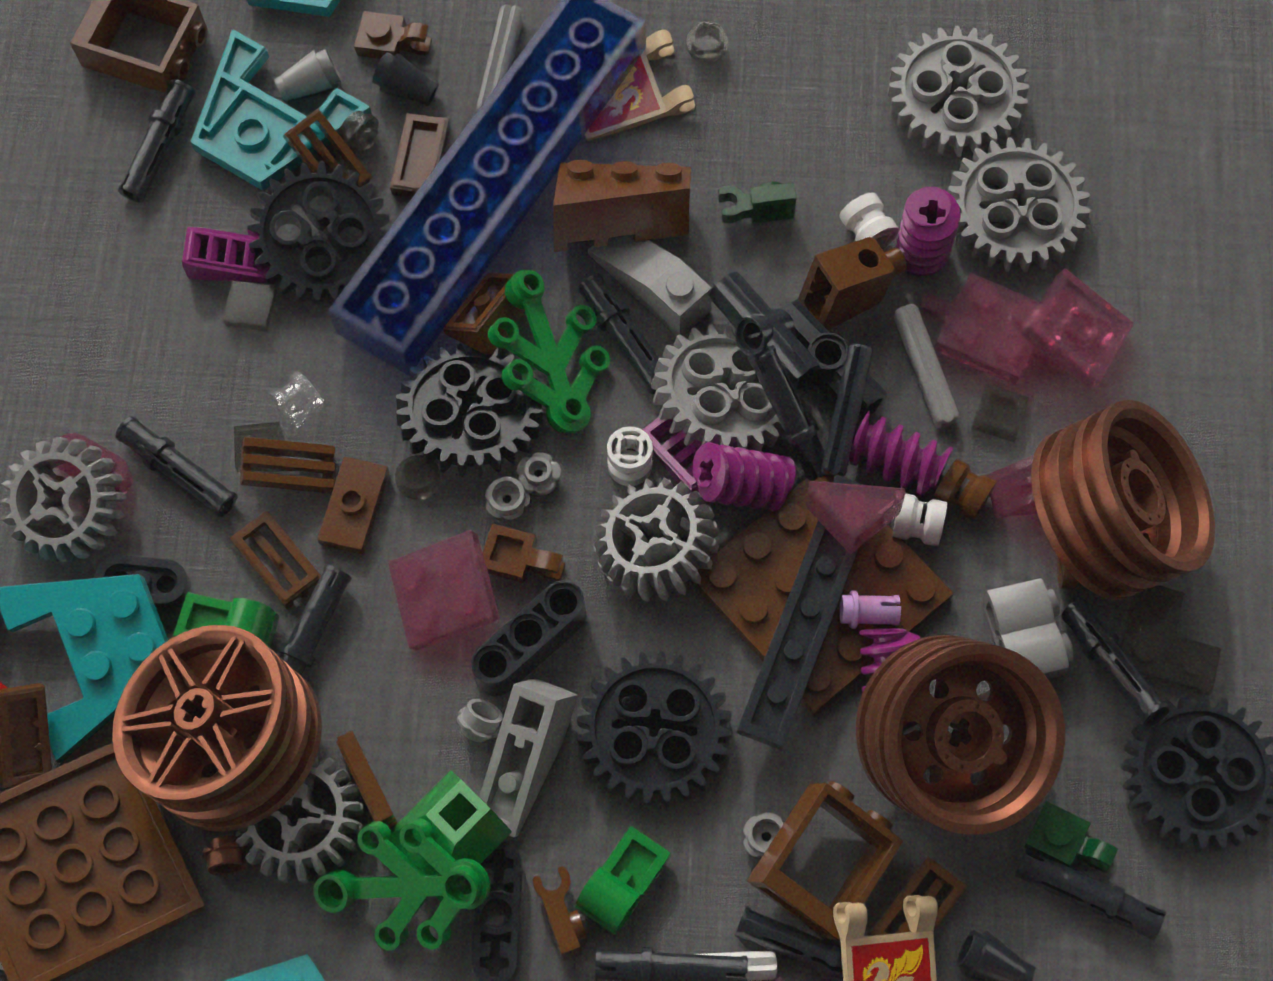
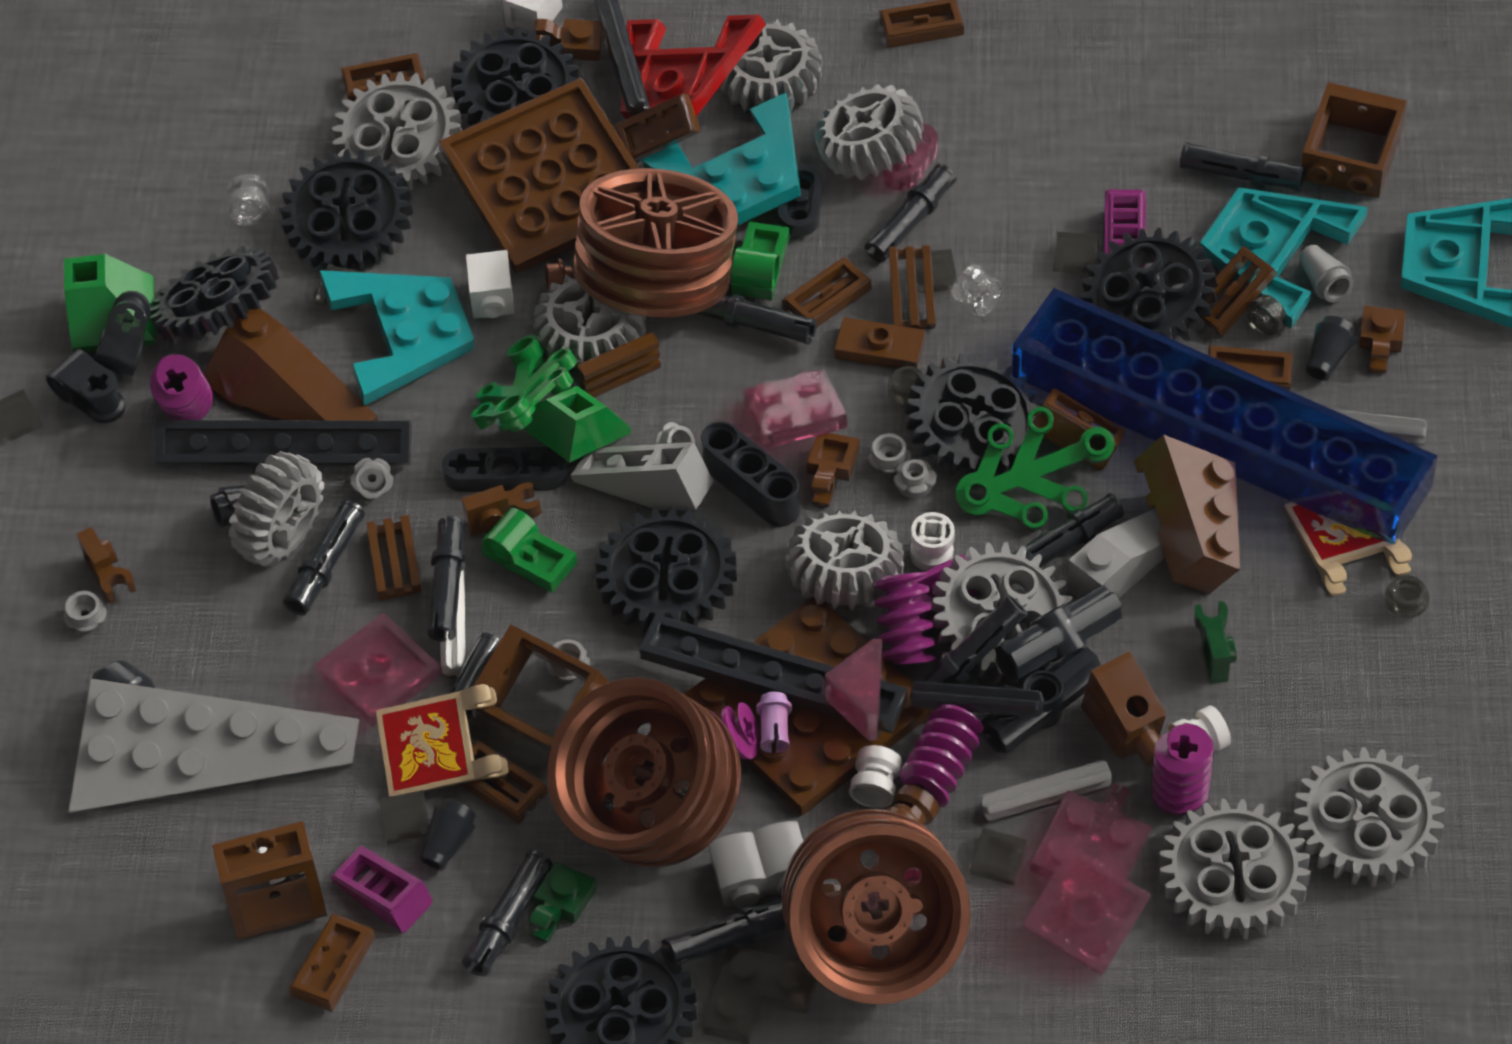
camera: 90 degrees right, 15 degrees down
(230, 935) = (490, 284): none -> white brick

